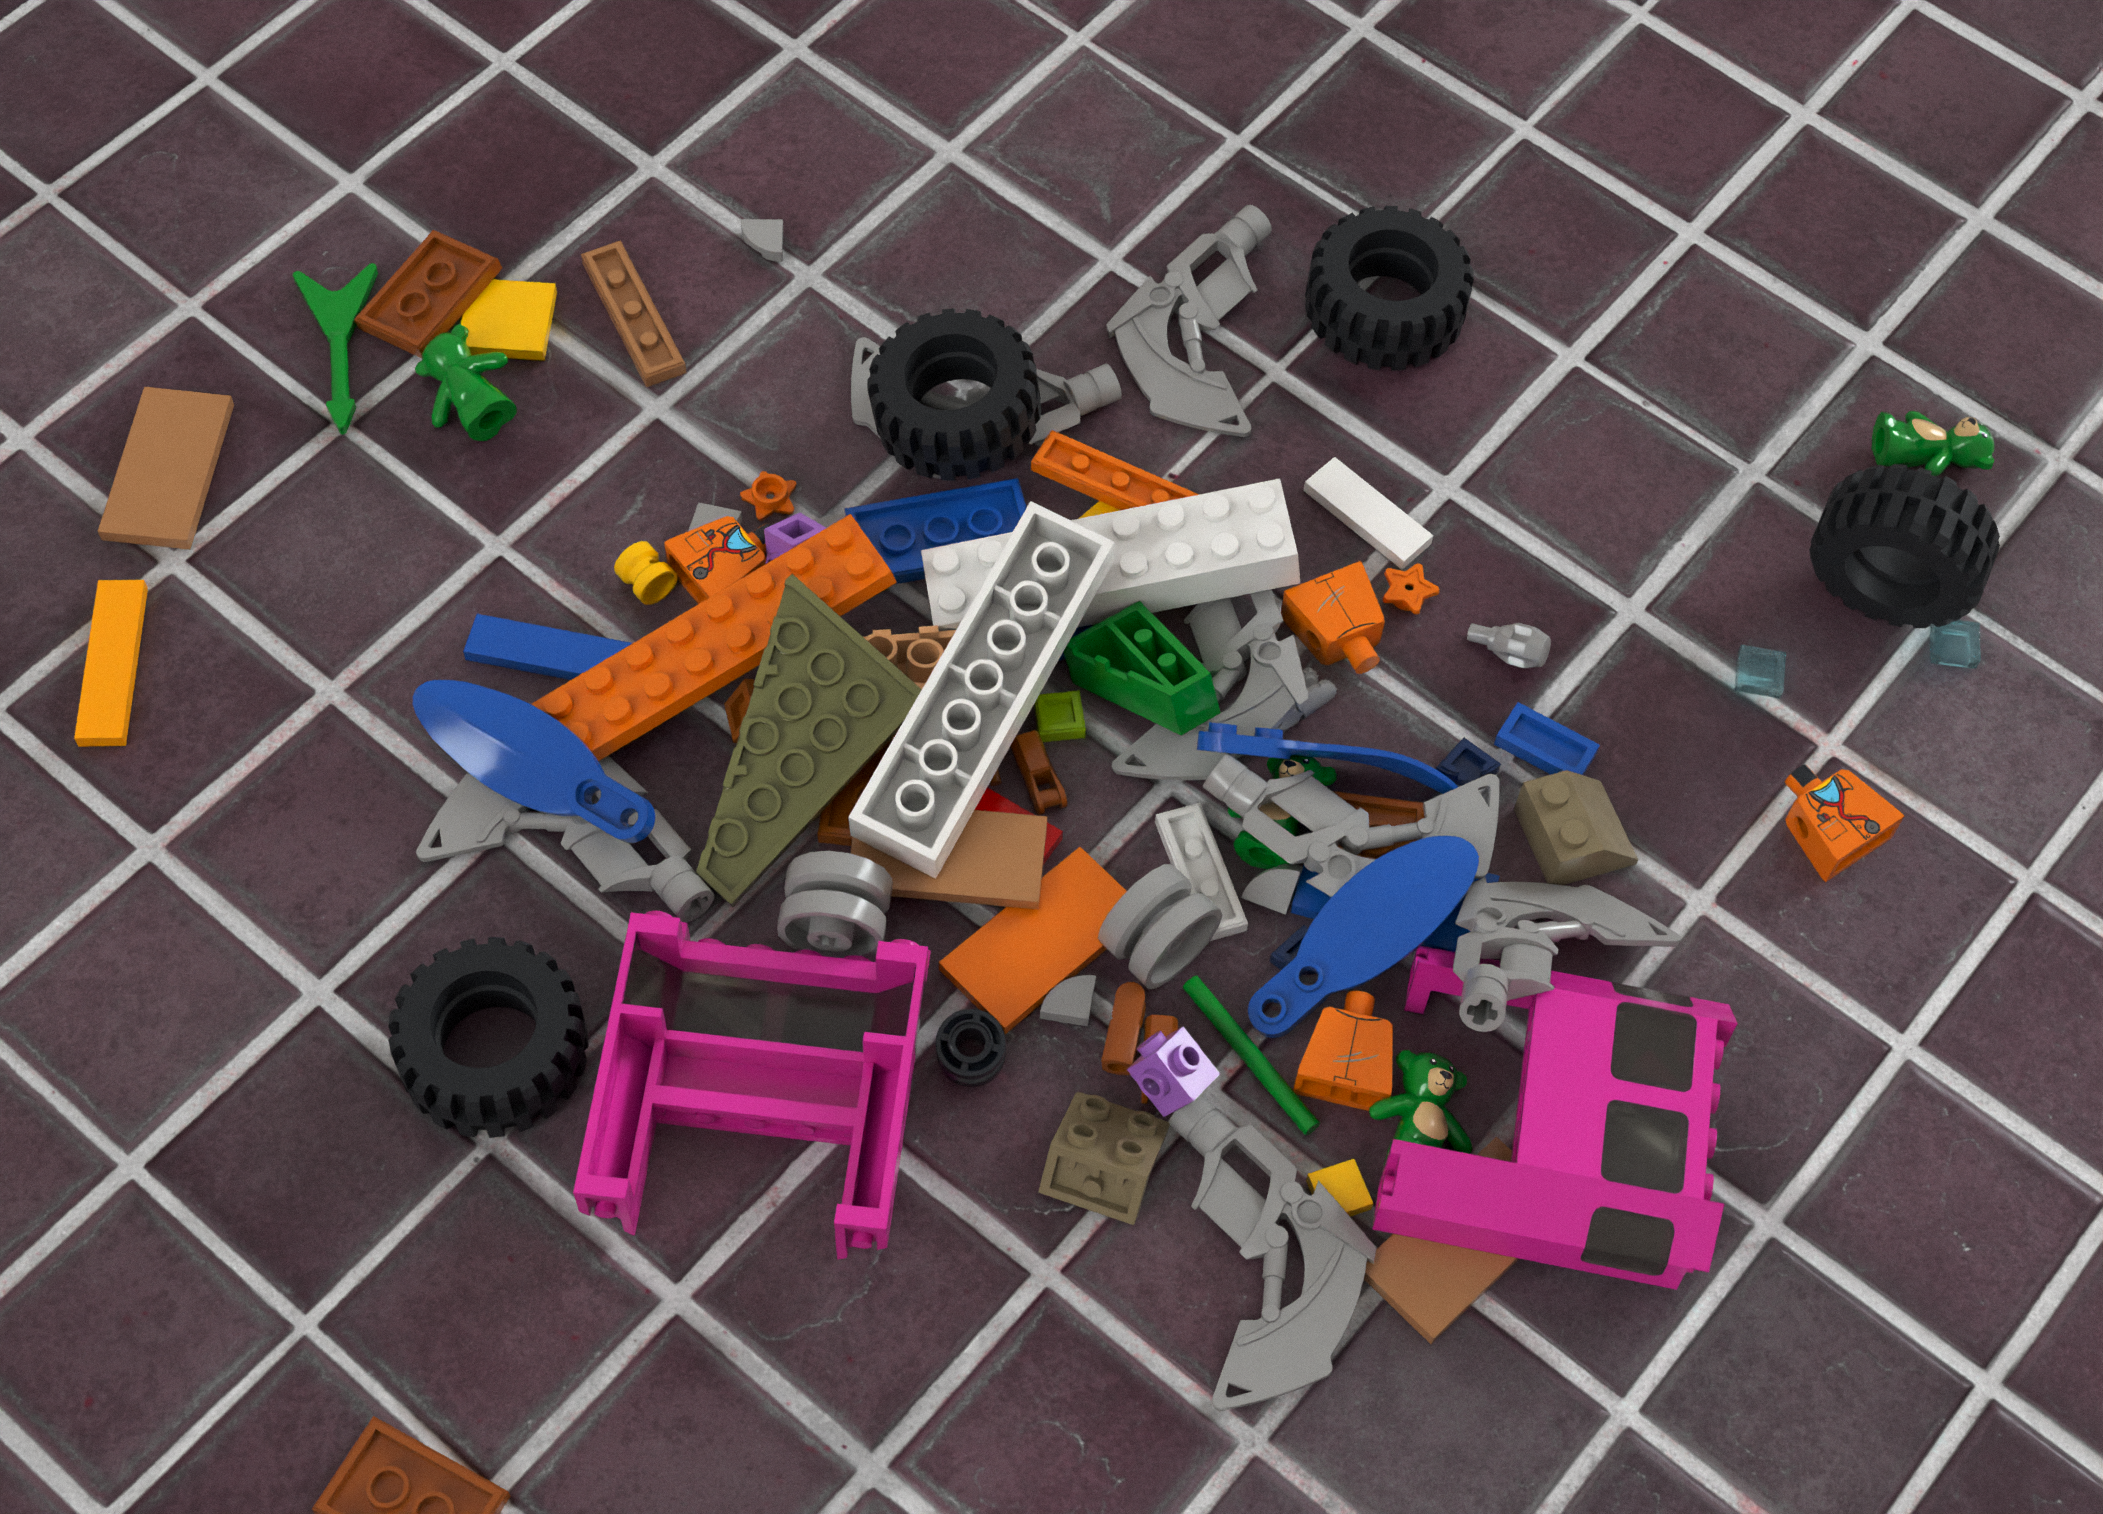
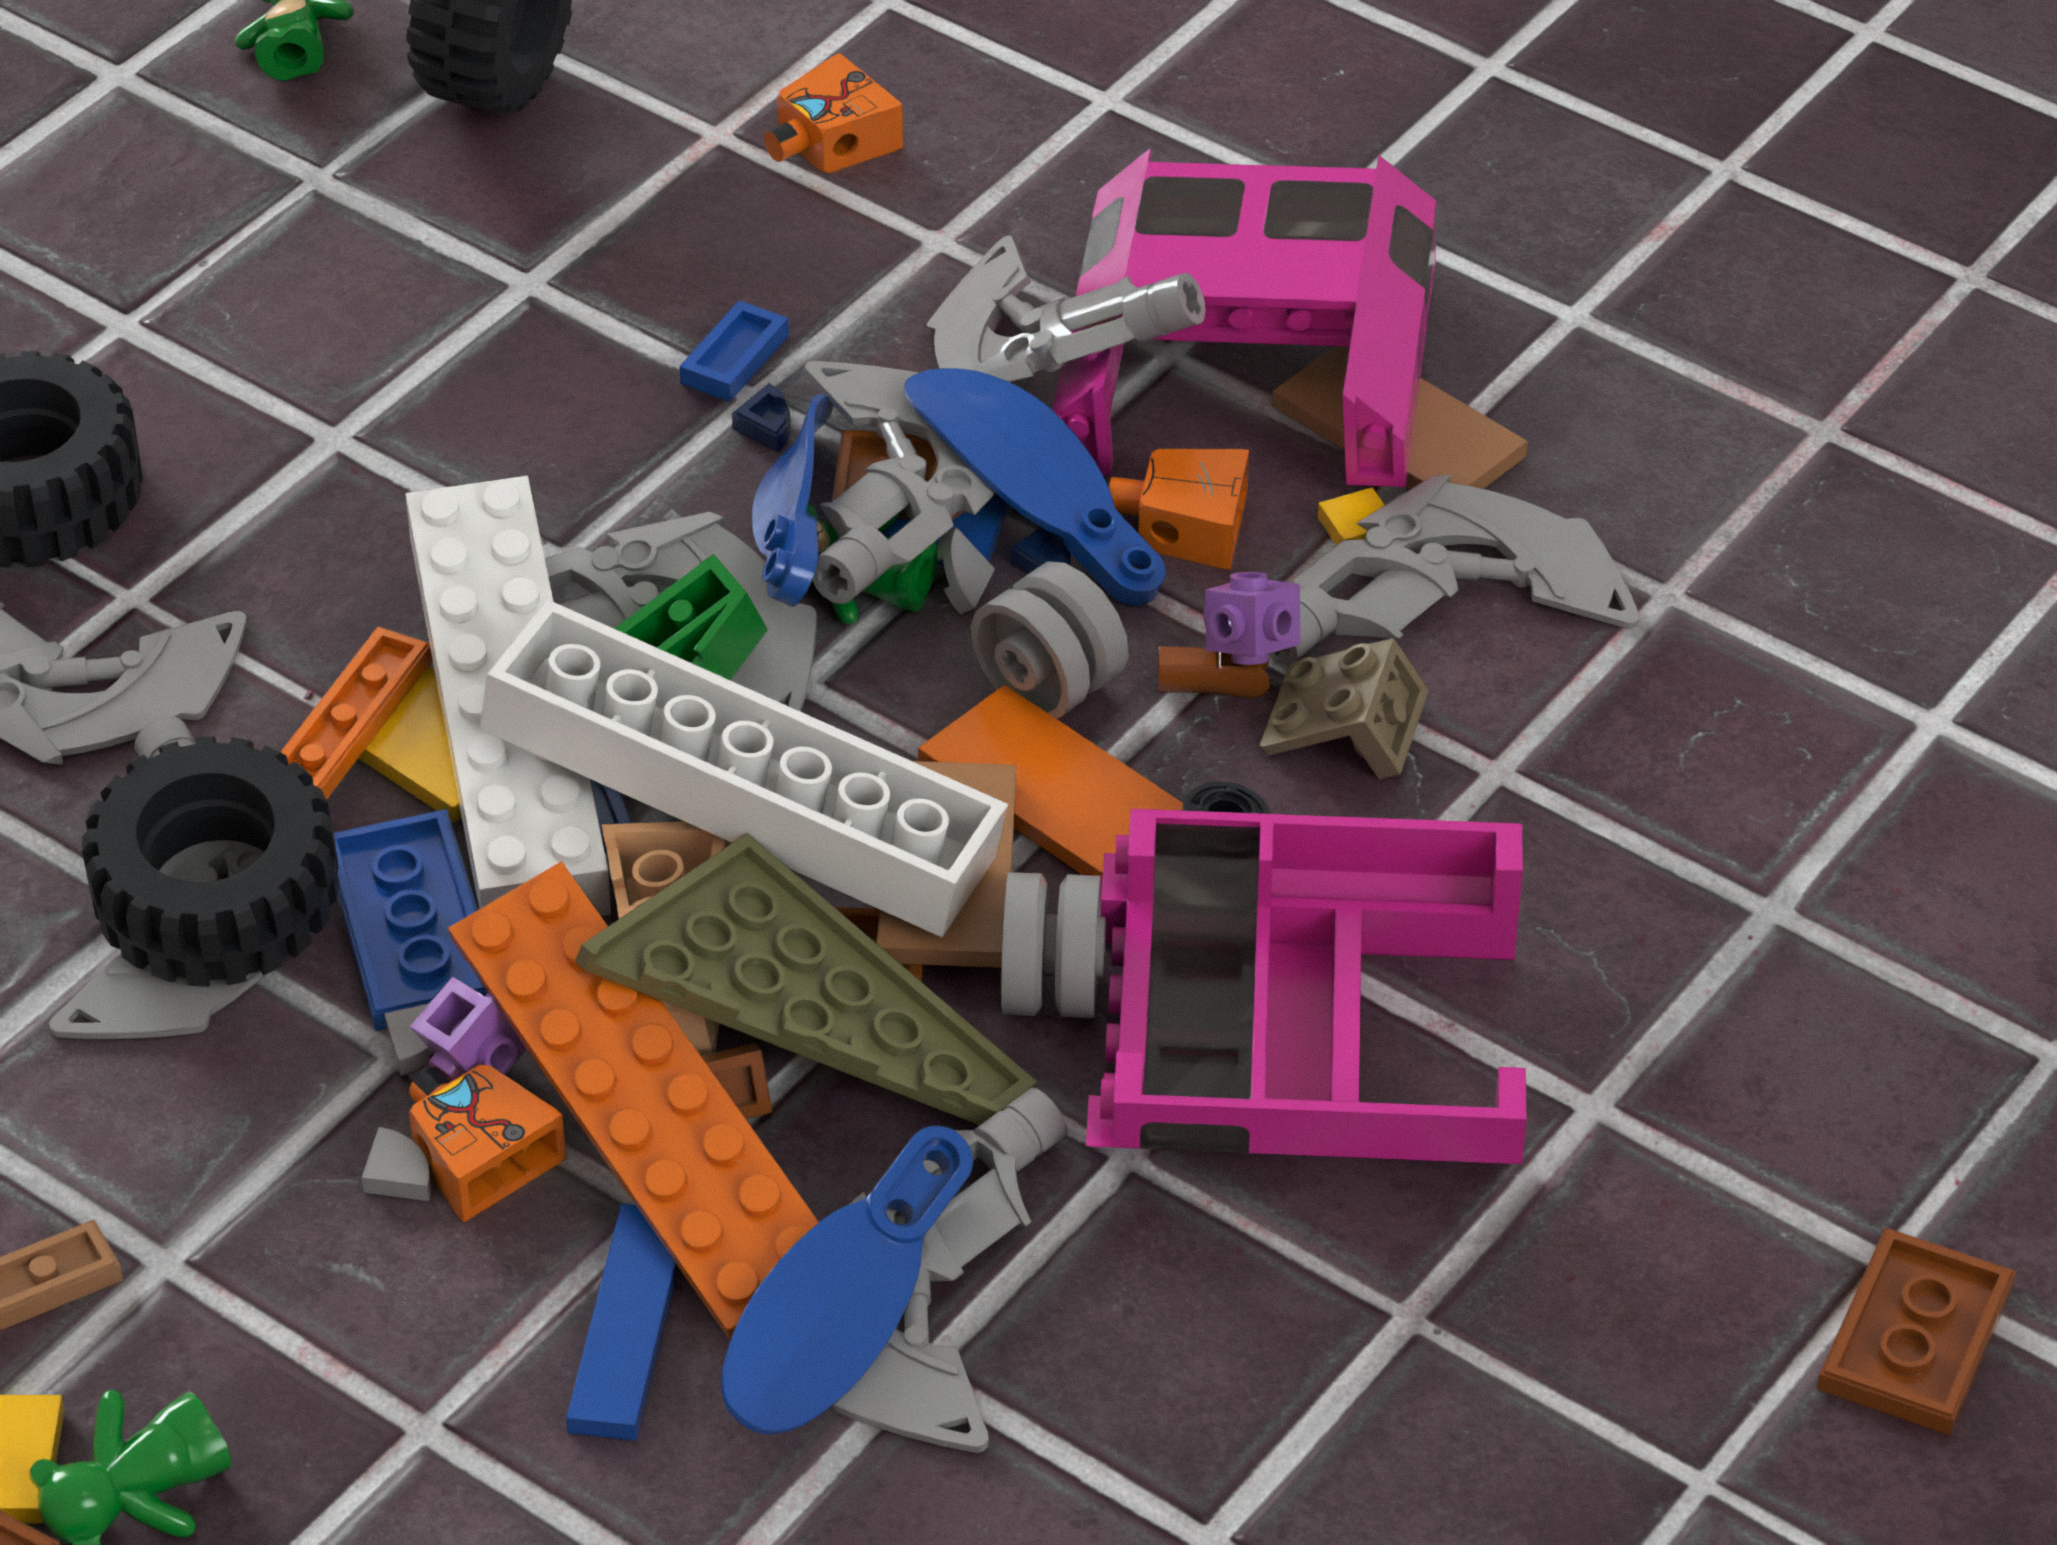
camera: 90 degrees left, 15 degrees down
(477, 980) = (1275, 1361): black tyre -> none
(641, 568) = (490, 1222): yellow wheel -> none
(770, 484) = (335, 1096): orange plate -> none
(1070, 1001) = (1138, 749): light grey tile -> none
(1124, 1029) = (1173, 700): dark orange bar -> none
(1197, 856) = (912, 652): white tile -> none
(1251, 1055) = (1193, 594): green bar -> none
(1337, 617) = (574, 505): orange torso -> none
(1368, 513) = (378, 501): white tile -> none
(1406, 599) = (505, 458): orange plate -> none
(1428, 1087) = (1275, 443): green piece -> none
(1513, 643) = (593, 367): light grey piece -> none
(1572, 827) = (865, 323): dark tan slope -> none
(1760, 671) = (620, 178): clear light blue tile -> none
(1956, 644) = (586, 28): clear light blue tile -> none

